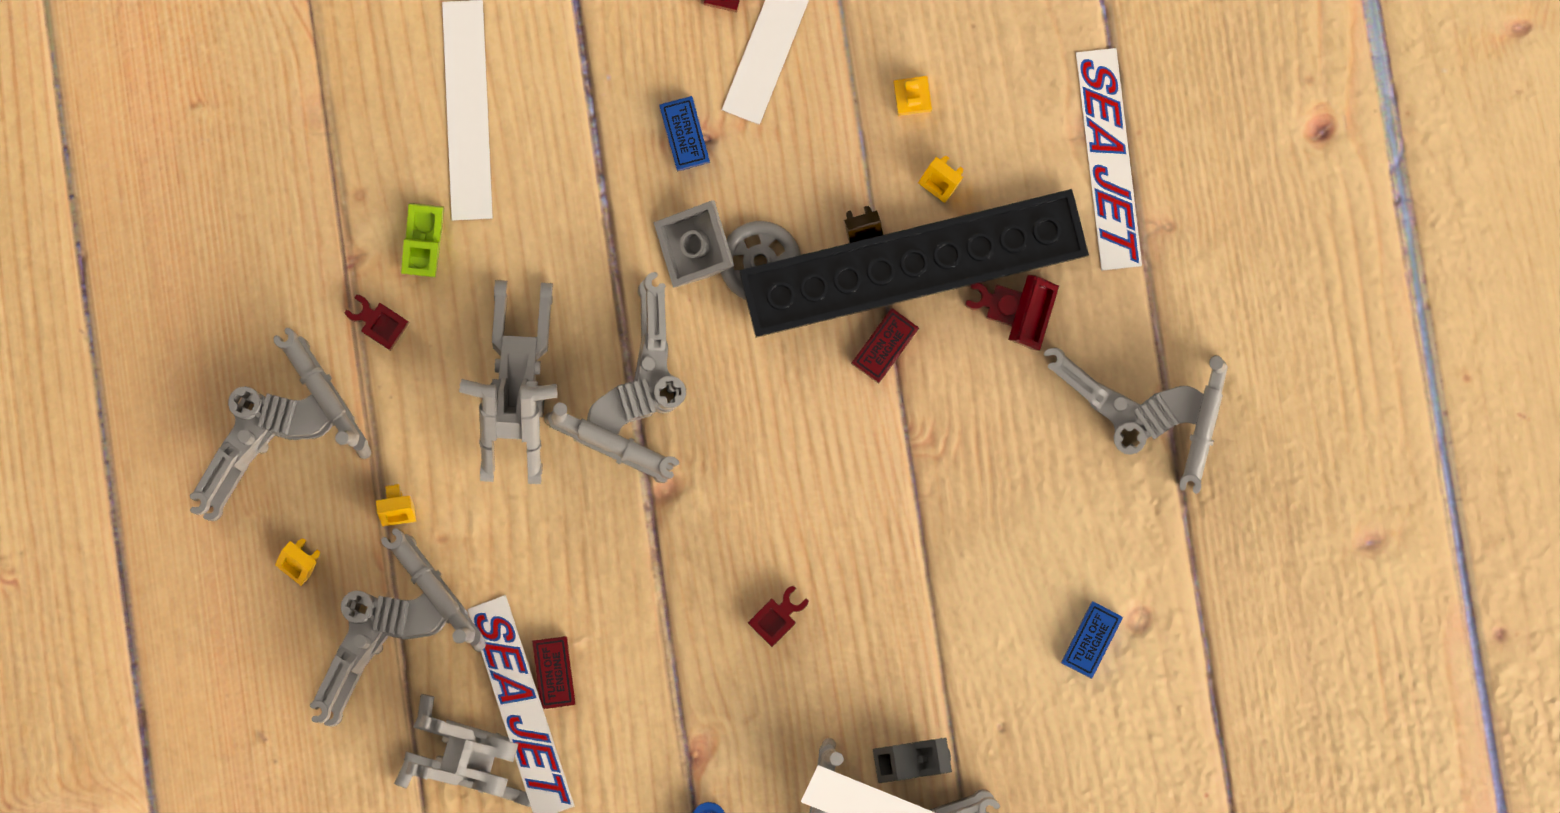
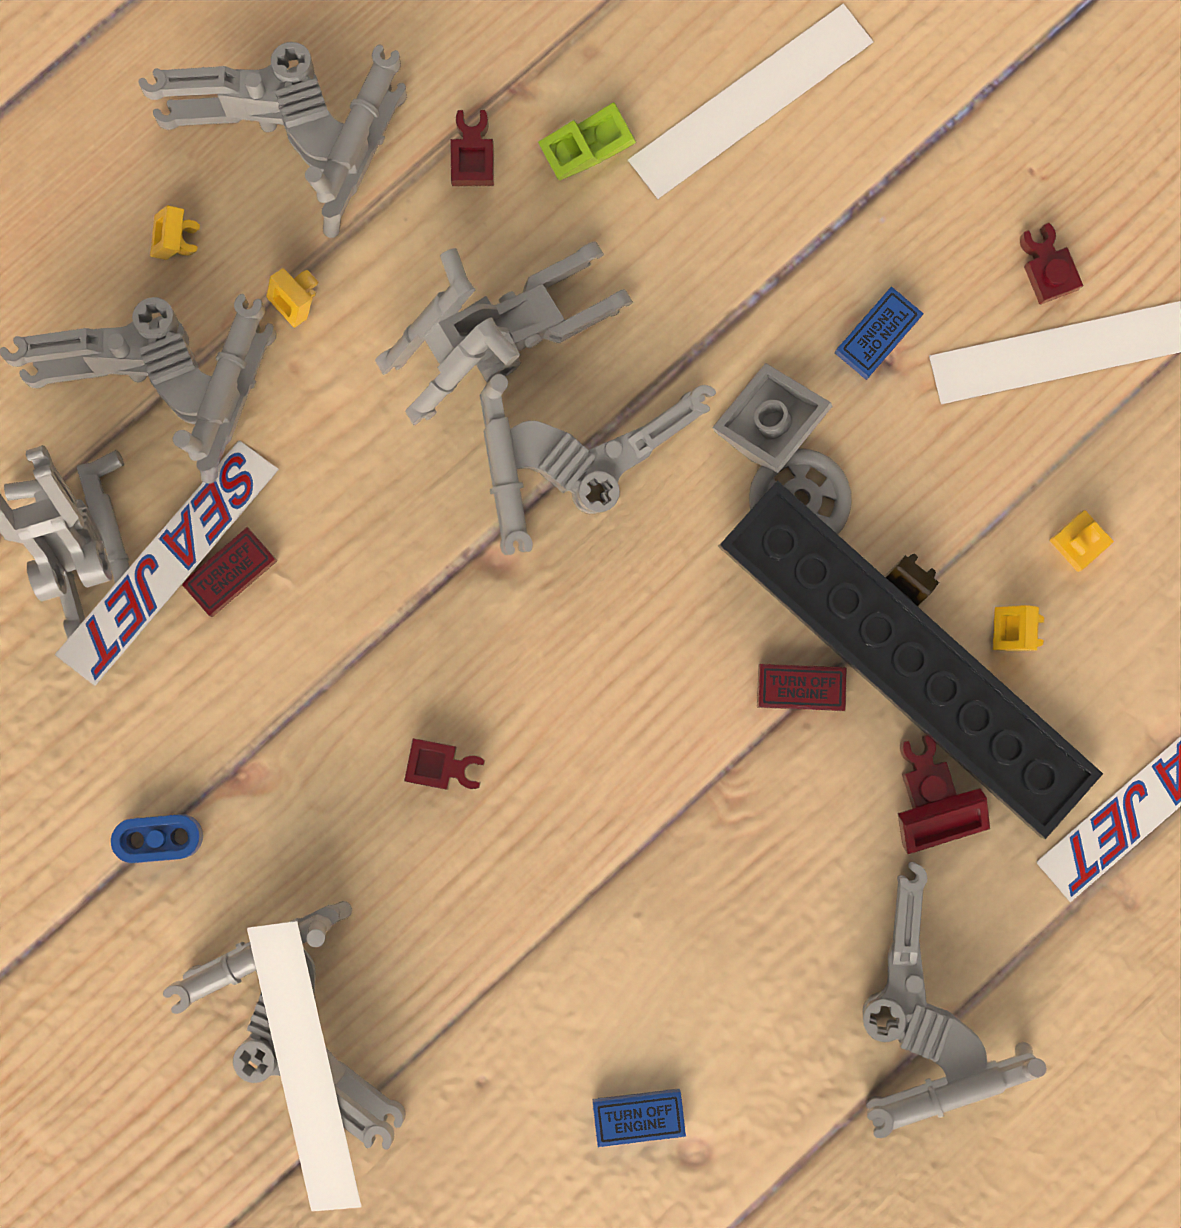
camera: 50 degrees right, 0 degrees up
(912, 760) = (382, 1013): dark grey brick -> none

